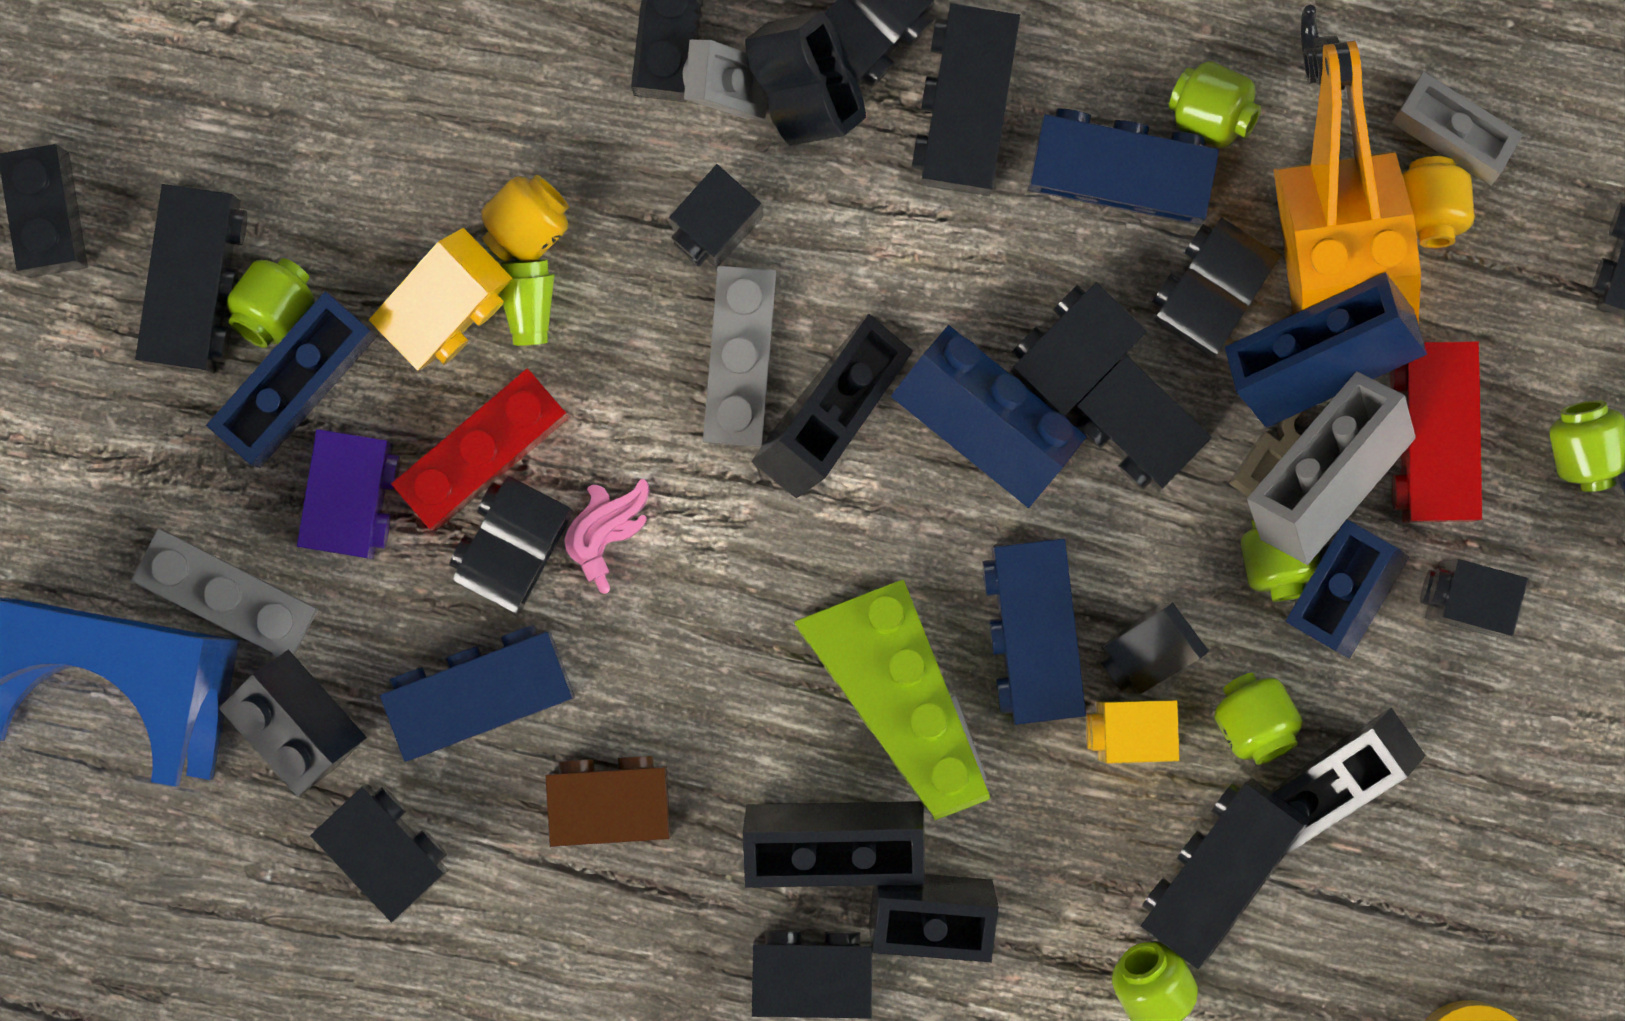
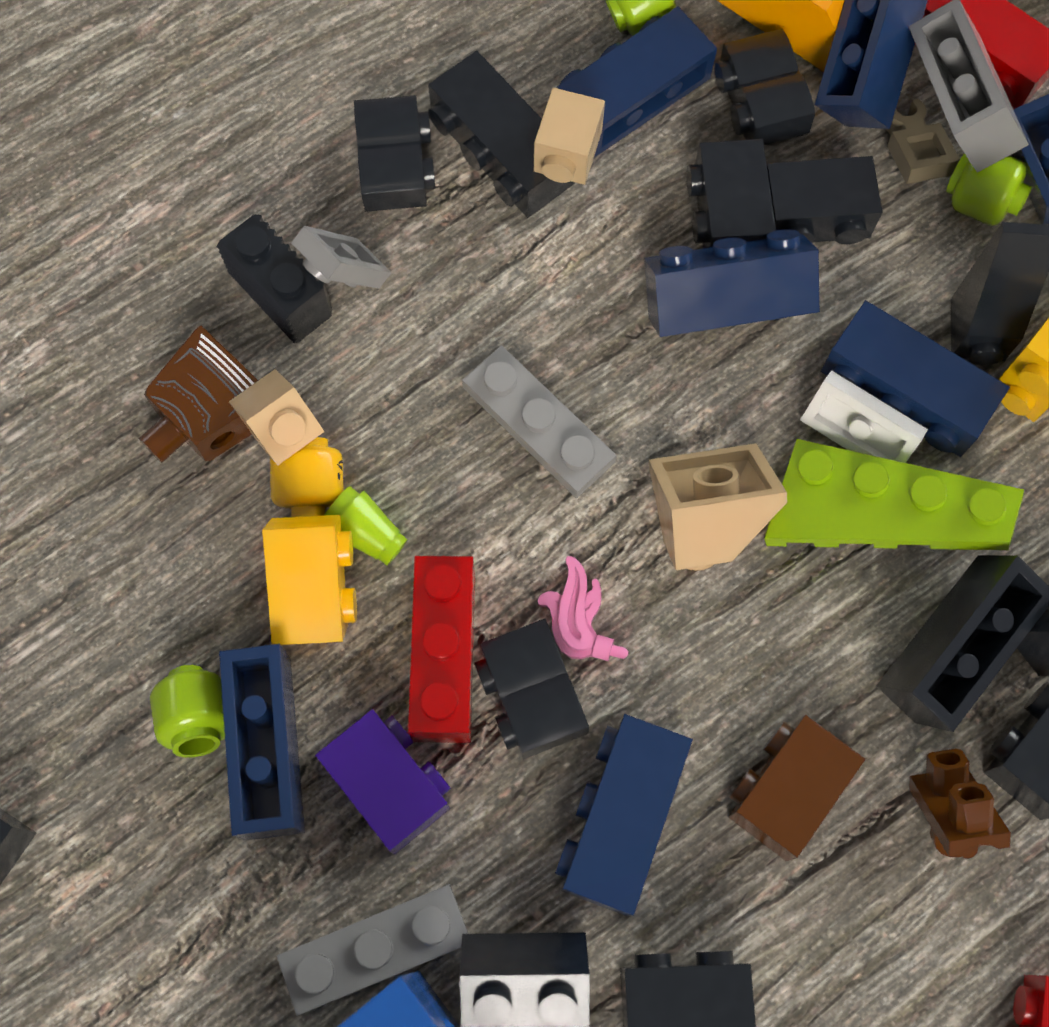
camera: 50 degrees left, 15 degrees down
(190, 279) = (117, 757): black brick -> none
(515, 77) = (194, 400): none -> reddish brown torso
(541, 159) = (276, 416): none -> tan brick
(695, 935) = (957, 806): none -> reddish brown hips
(714, 218) = (428, 340): black brick -> none
(787, 557) = (714, 503): none -> tan slope
(805, 78) = (389, 210): black brick -> none
(832, 408) = (635, 389): black slope -> none
(960, 622) = (861, 421): none -> white plate
(988, 175) = (568, 136): none -> tan brick

